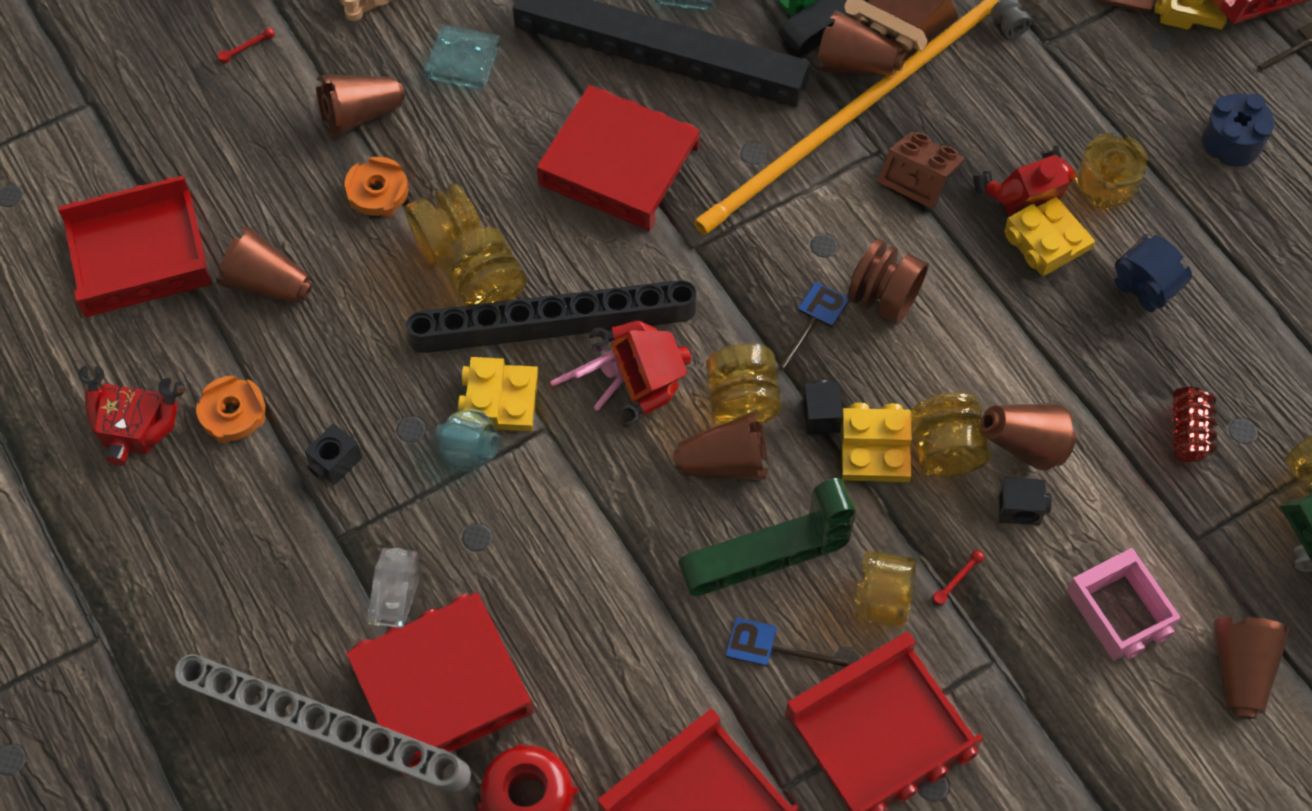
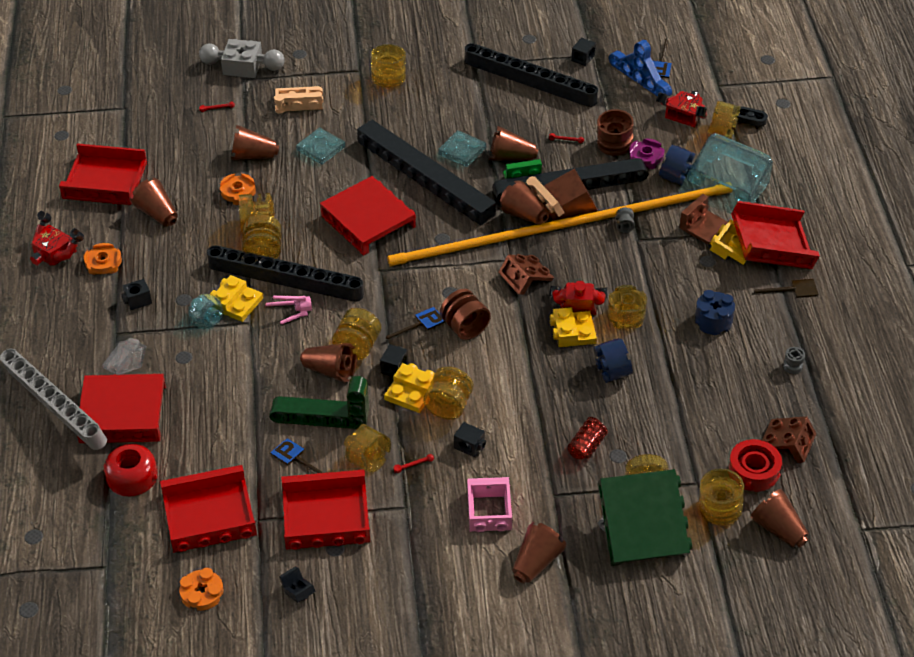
camera: 25 degrees right, 15 degrees down
(647, 362) = (315, 308): red torso -> none
(1031, 432) = (487, 403): copper cone -> none

